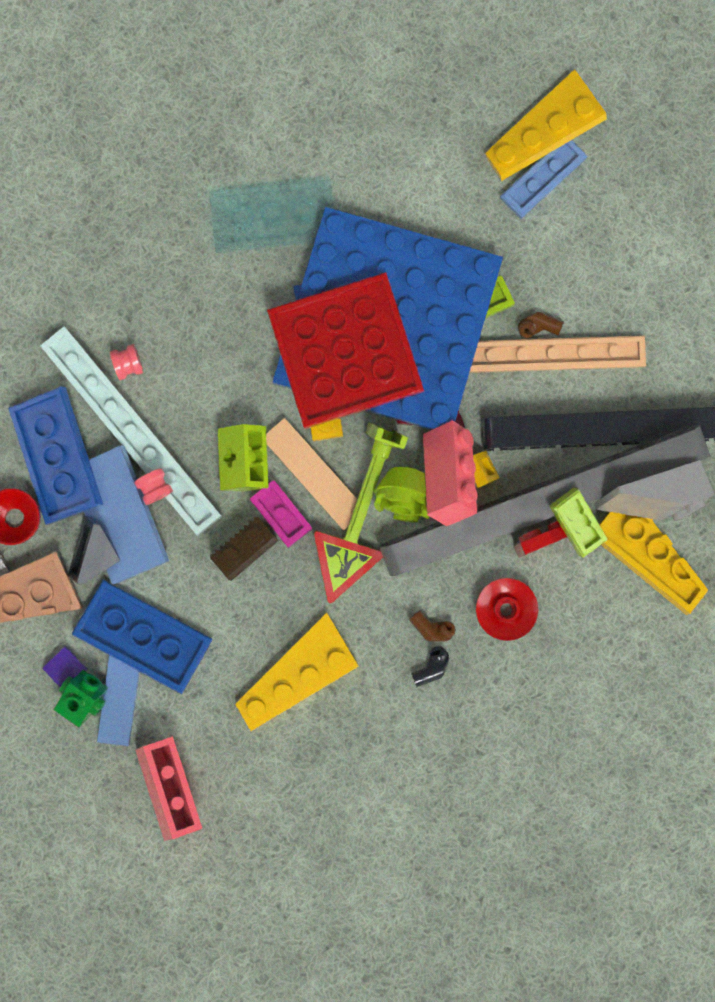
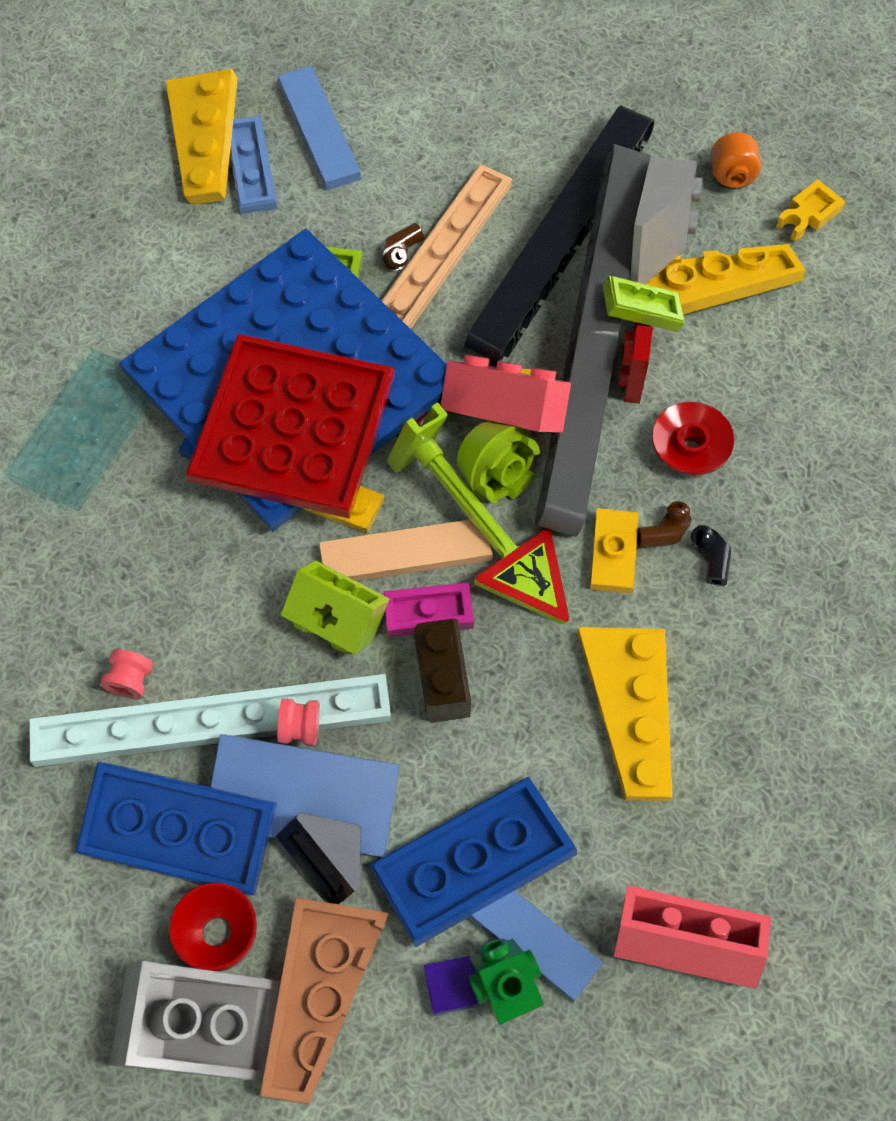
camera: 55 degrees left, 20 degrees down
(396, 603) = (614, 551): none -> yellow plate
(605, 202) = (319, 128): none -> medium blue tile

